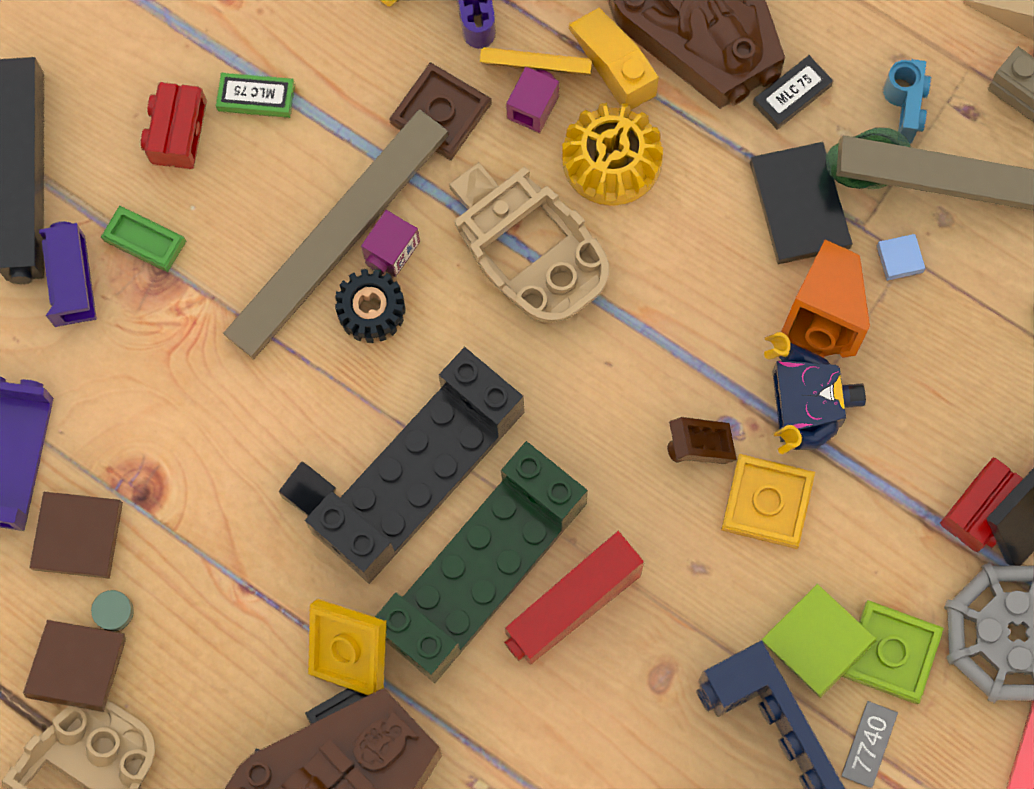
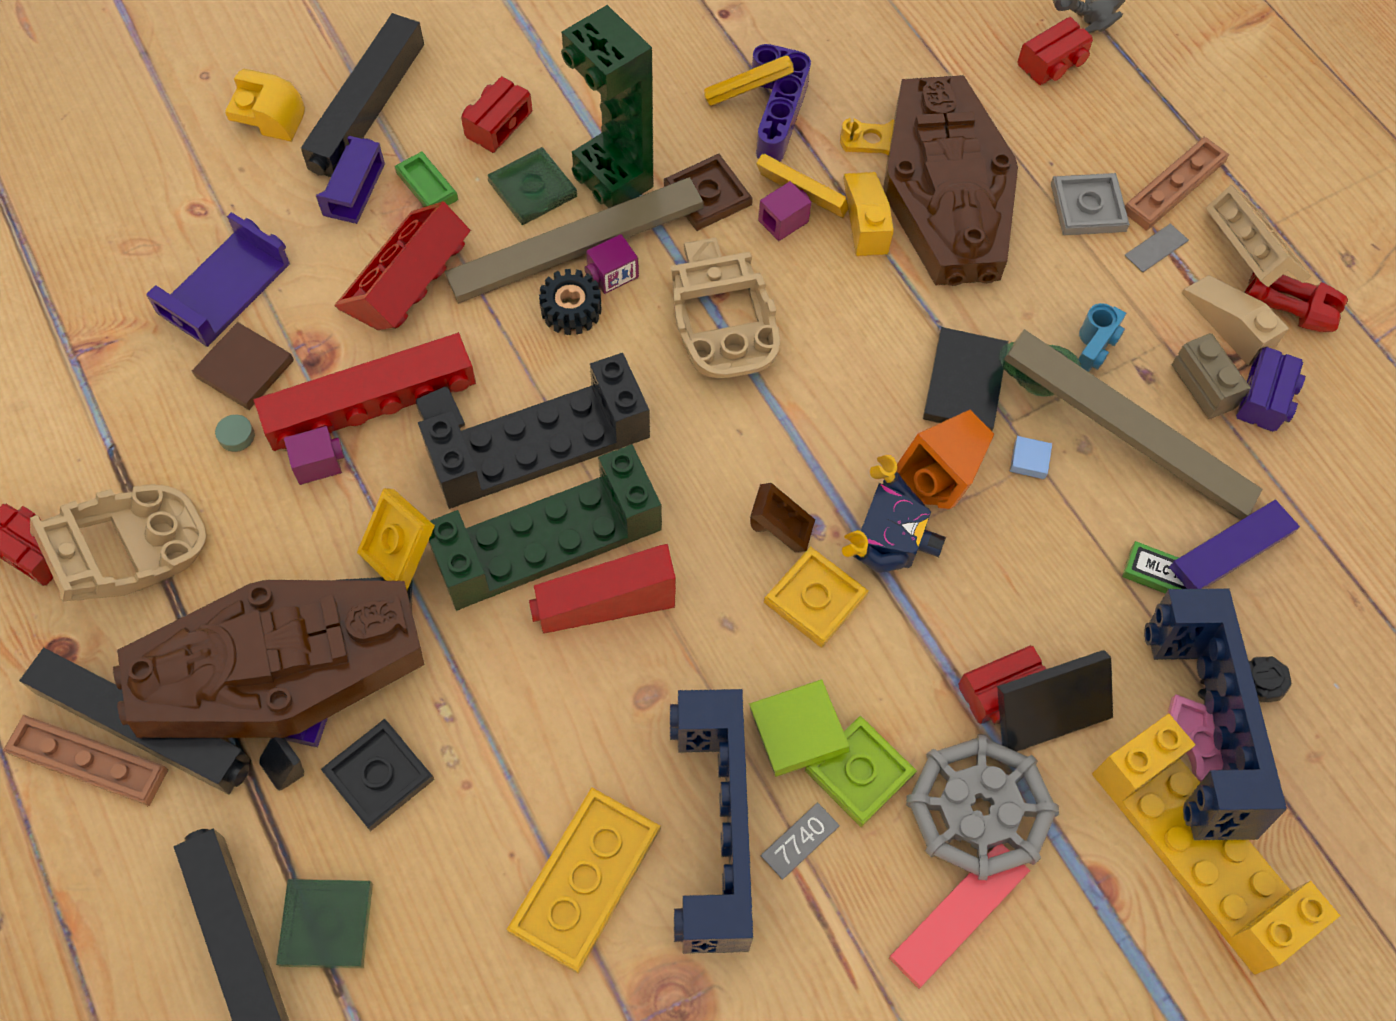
camera: 20 degrees right, 10 degrees down
(75, 665) = (178, 457): reddish brown tile -> none
(179, 348) = (405, 267): none -> red slope
(209, 596) = (314, 455): none -> magenta brick
(221, 505) = (365, 390): none -> red brick
(255, 95) = (569, 120): tile -> none
(256, 189) = (532, 185): none -> clear green tile
(333, 76) = (619, 67): none -> dark green plate
(611, 179) = (824, 290): yellow gear -> none
(793, 92) = (1002, 296): tile -> none

